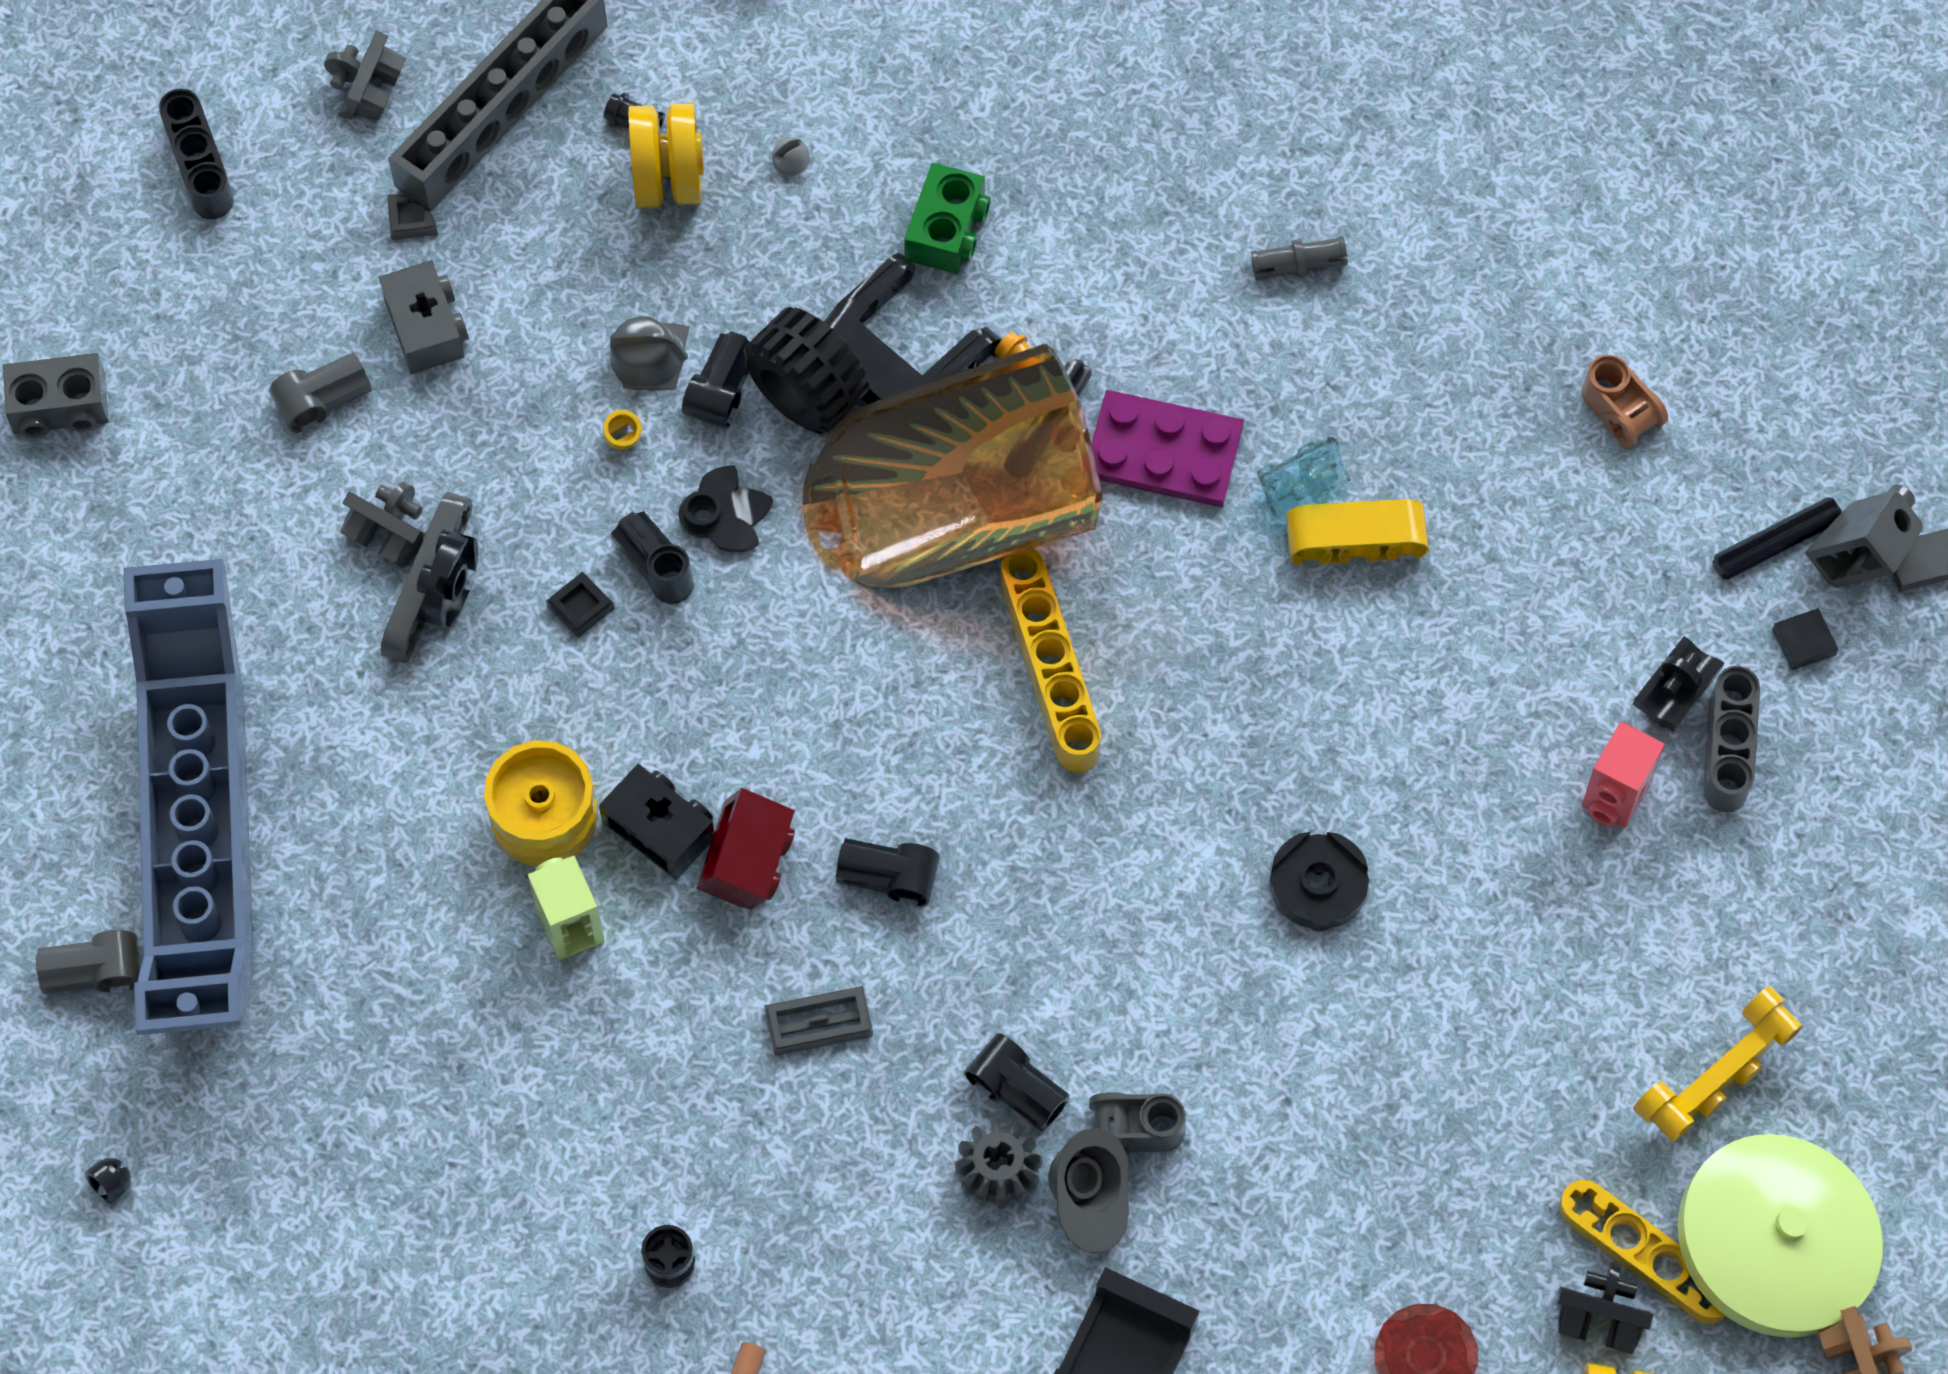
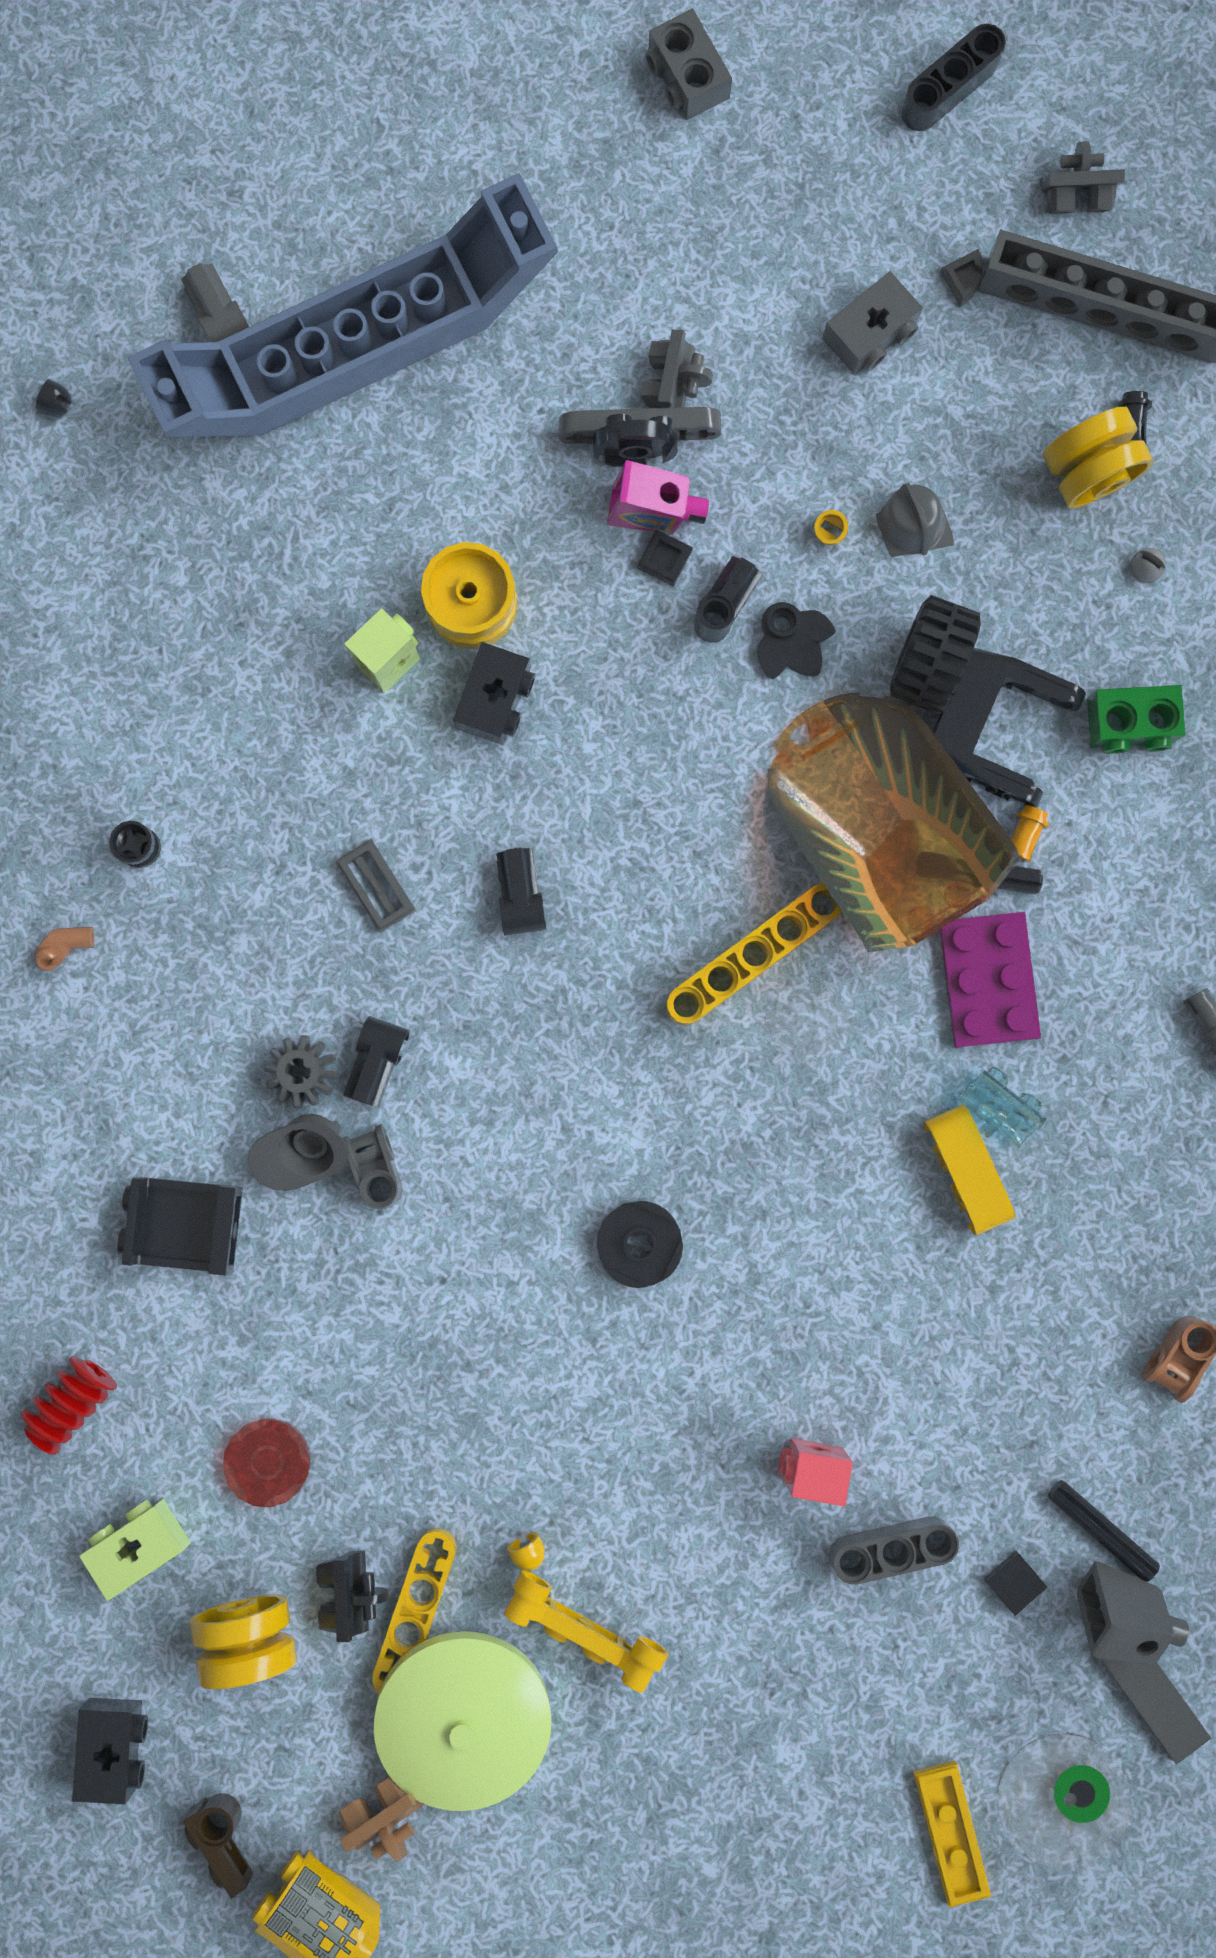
camera: 70 degrees right, 20 degrees up
(310, 395) = (767, 266): dark grey piece -> none
(525, 578) = (640, 497): none -> dark pink torso
(719, 386) = (901, 590): black piece -> none
(747, 850) = (491, 774): dark red brick -> none
(1620, 1108) = (529, 1556): none -> yellow hinge
(1677, 684) = (925, 1490): black hips -> none

